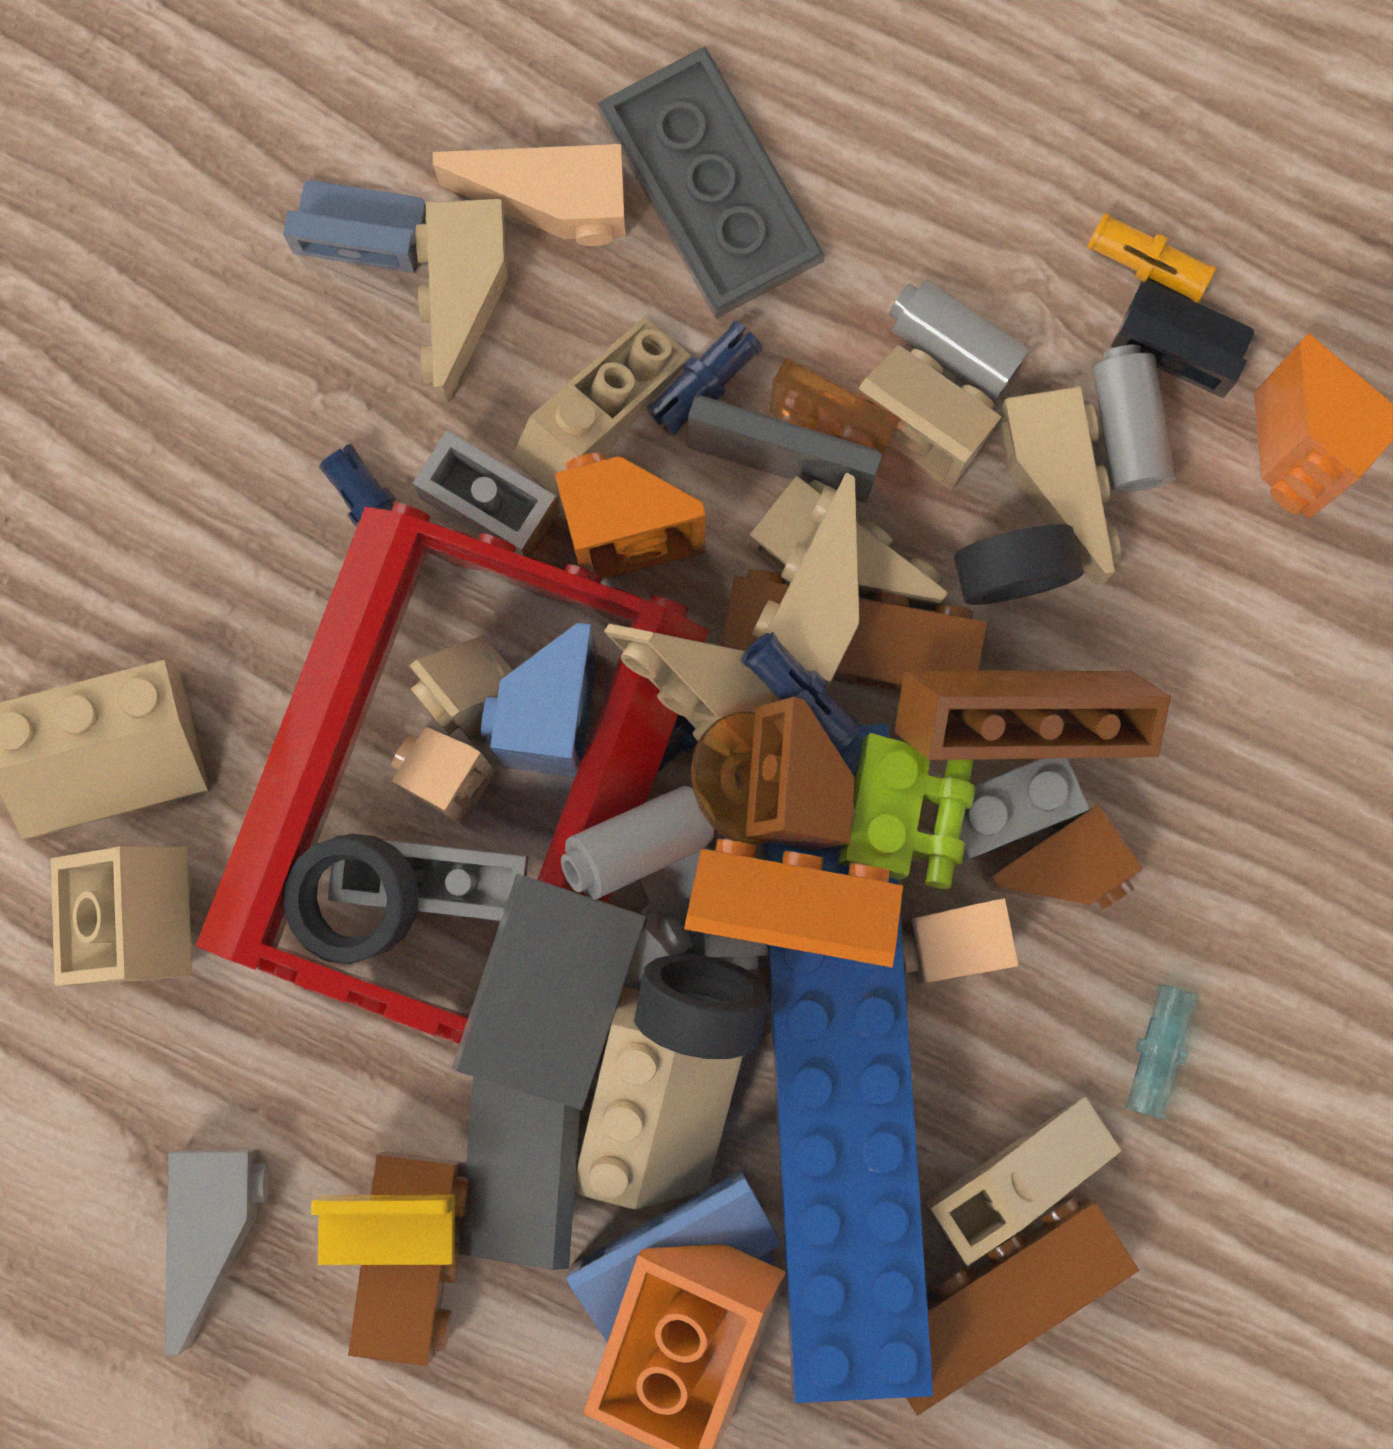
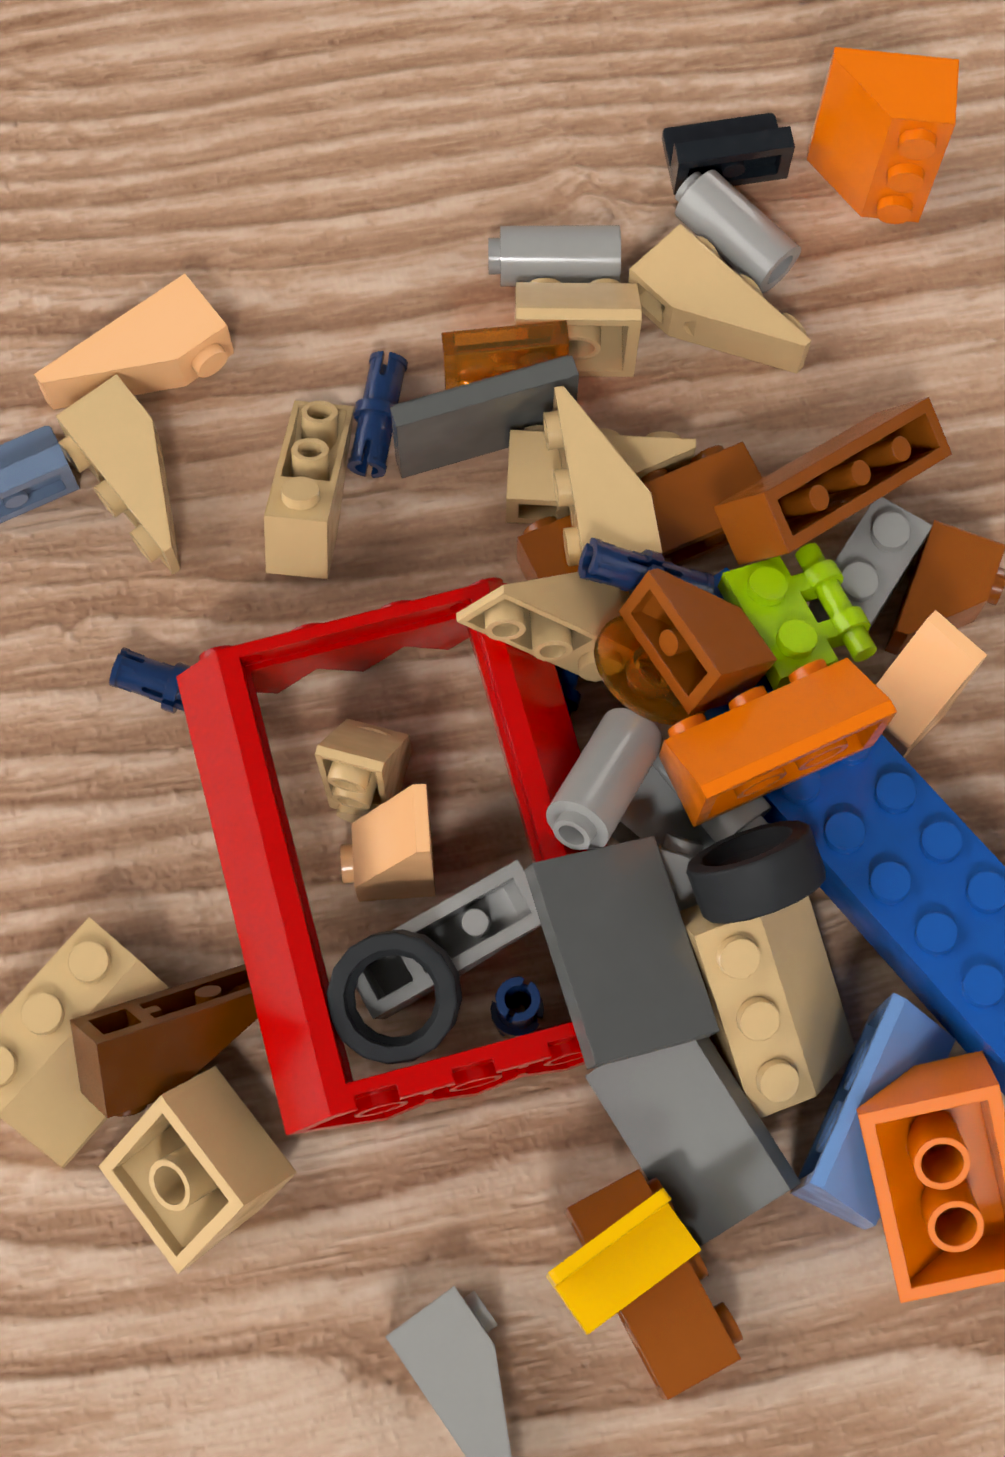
camera: 35 degrees left, 10 degrees down
(155, 796) = (158, 1040): none -> reddish brown slope
(433, 972) = (511, 995): none -> dark blue pin
(486, 494) = (264, 602): light grey brick -> none
(545, 707) = (449, 733): medium blue slope -> none
(626, 516) = (401, 535): orange slope -> none
(710, 182) = (275, 268): dark grey tile -> none
(1018, 564) = (733, 383): black tyre -> none
(1189, 278) = (696, 106): light orange pin -> none

